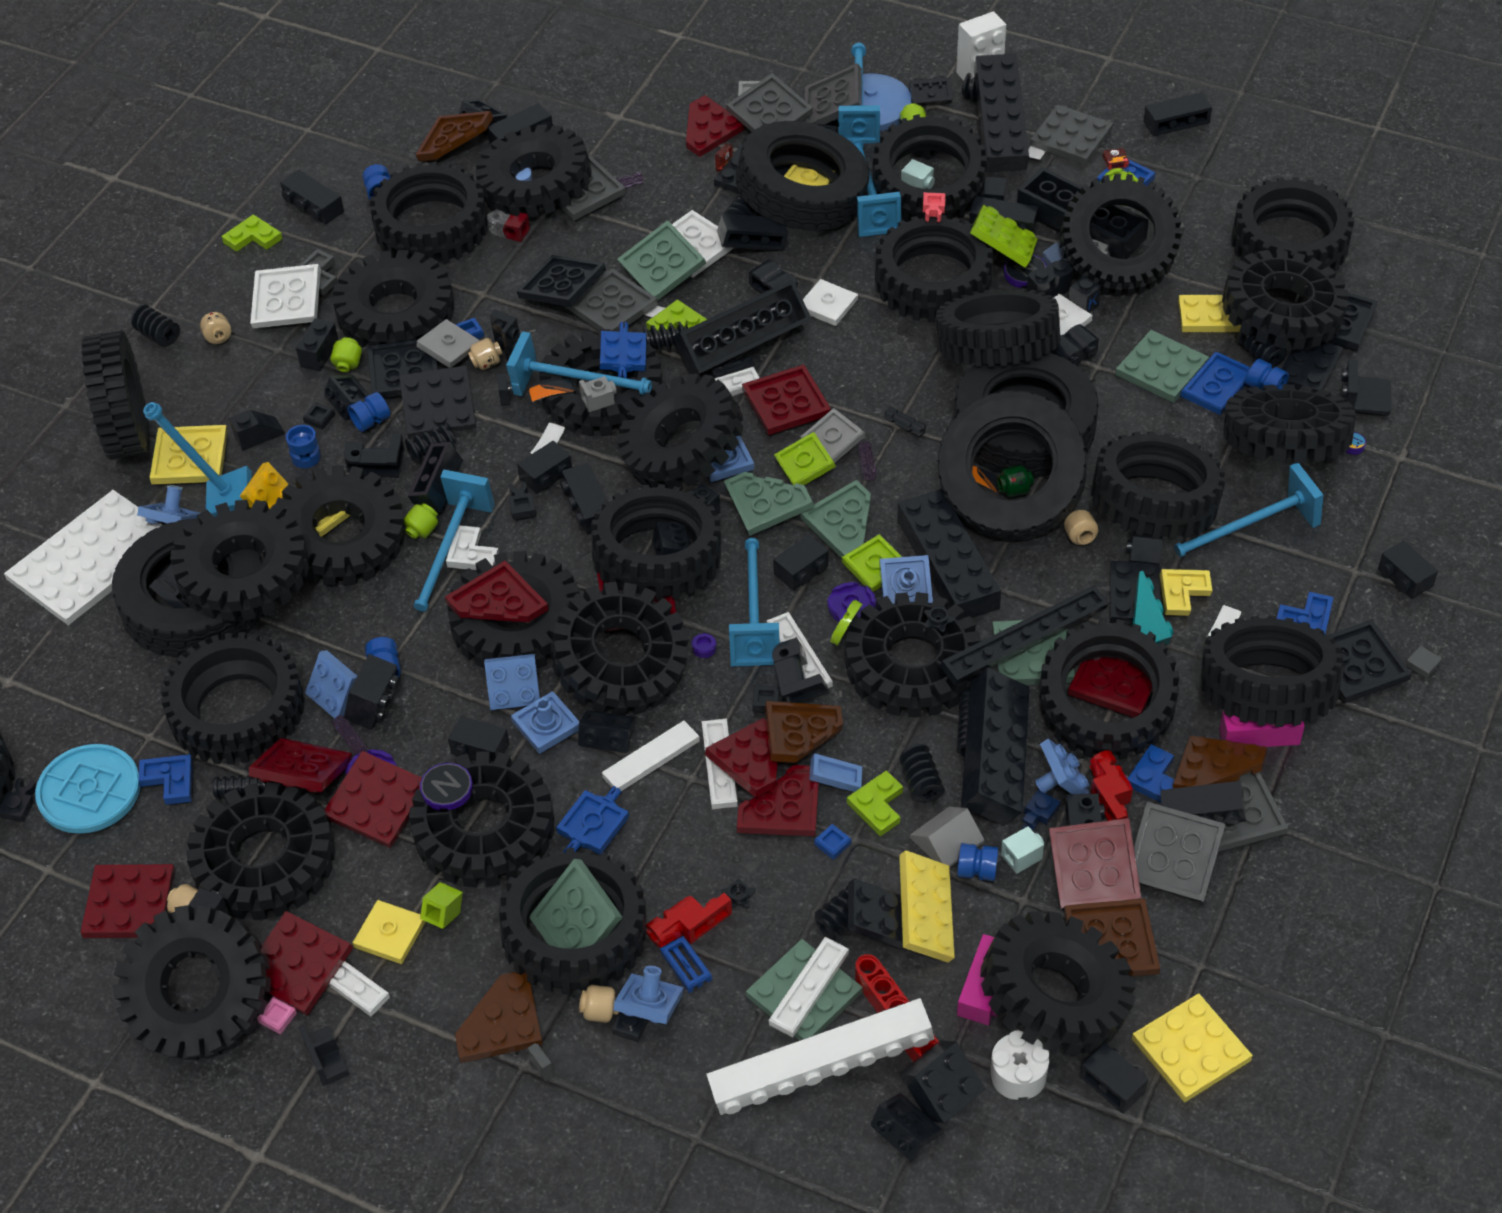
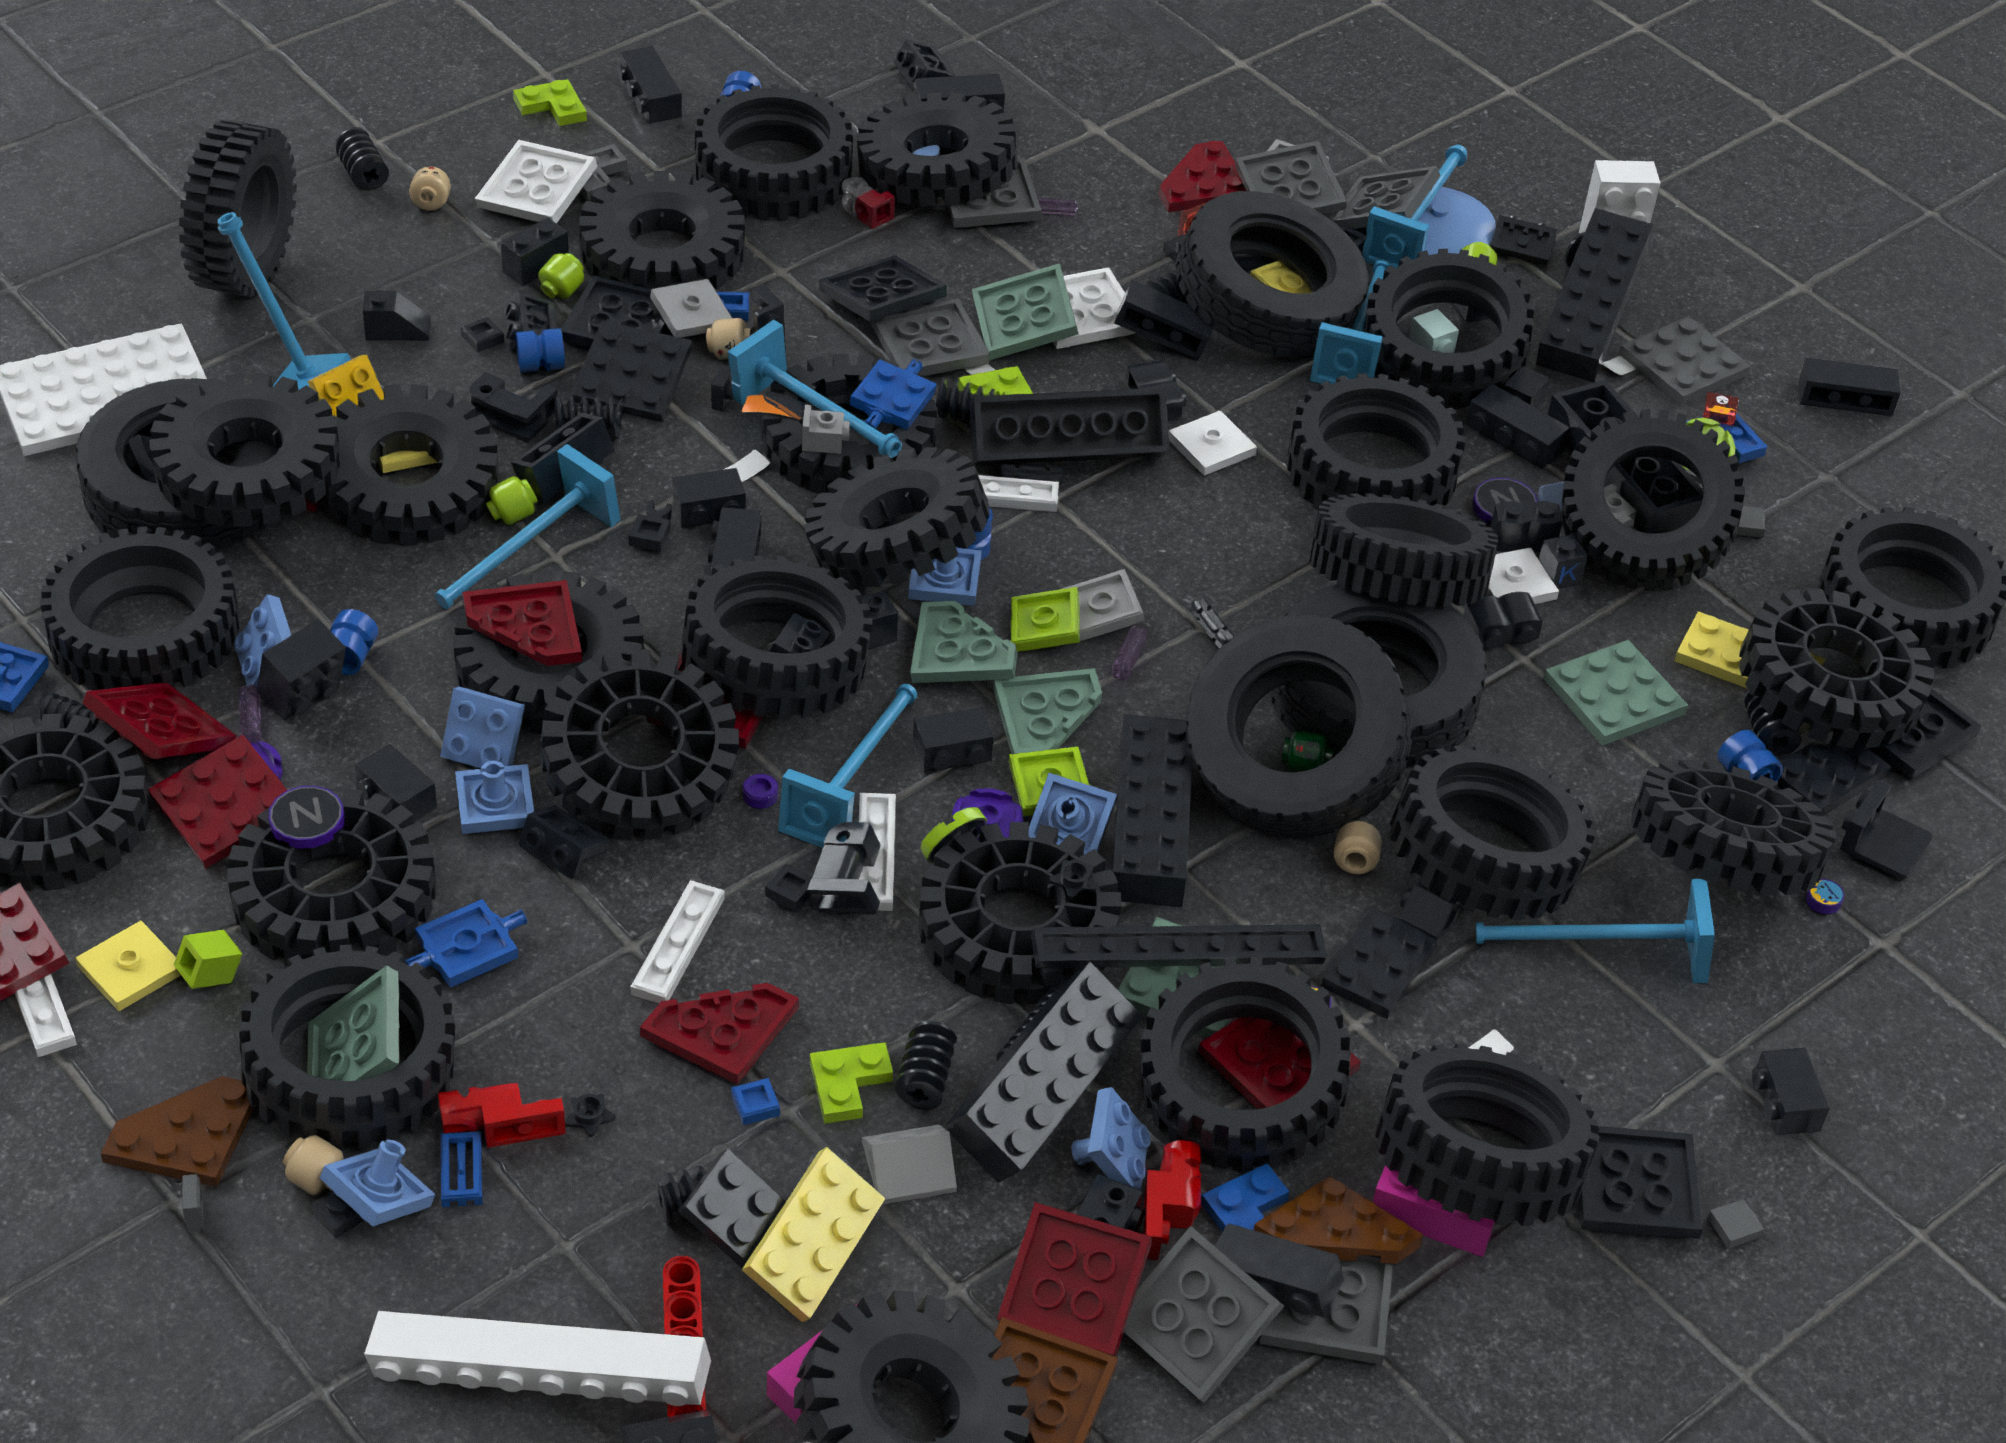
camera: 20 degrees right, 5 degrees down
(169, 511) = (210, 367): medium blue plate -> none
(173, 466) = (312, 312): light yellow plate -> none
(303, 446) = (433, 359): blue wheel -> none
(452, 132) = (869, 71): reddish brown plate -> none
(465, 550) = (546, 553): white plate -> none
(651, 756) = (597, 896): white tile -> none
(746, 758) = (717, 947): dark red plate -> none
(776, 982) = (587, 1270): sand green plate -> none
(786, 399) = (1073, 536): dark red plate -> none
(799, 728) = (803, 939): reddish brown plate -> none
(808, 987) = (588, 1265): white tile -> none
(835, 773) = (814, 1015): medium blue tile -> none
(933, 205) = (1417, 368): coral plate -> none
(977, 862) = (919, 1207): blue wheel -> none
(985, 478) = (1269, 732): sticker -> none
(1004, 235) = (1494, 444): lime plate -> none
(1022, 849) = (996, 1220): light aqua brick -> none
(1040, 809) = (1058, 1180): dark blue plate -> none
(1149, 611) = (1366, 996): teal slope -> none
(1179, 585) = (1448, 975): light yellow plate -> none
(1216, 383) = (1685, 735): blue tile -> none
(1315, 612) = (1612, 1097): blue plate -> none

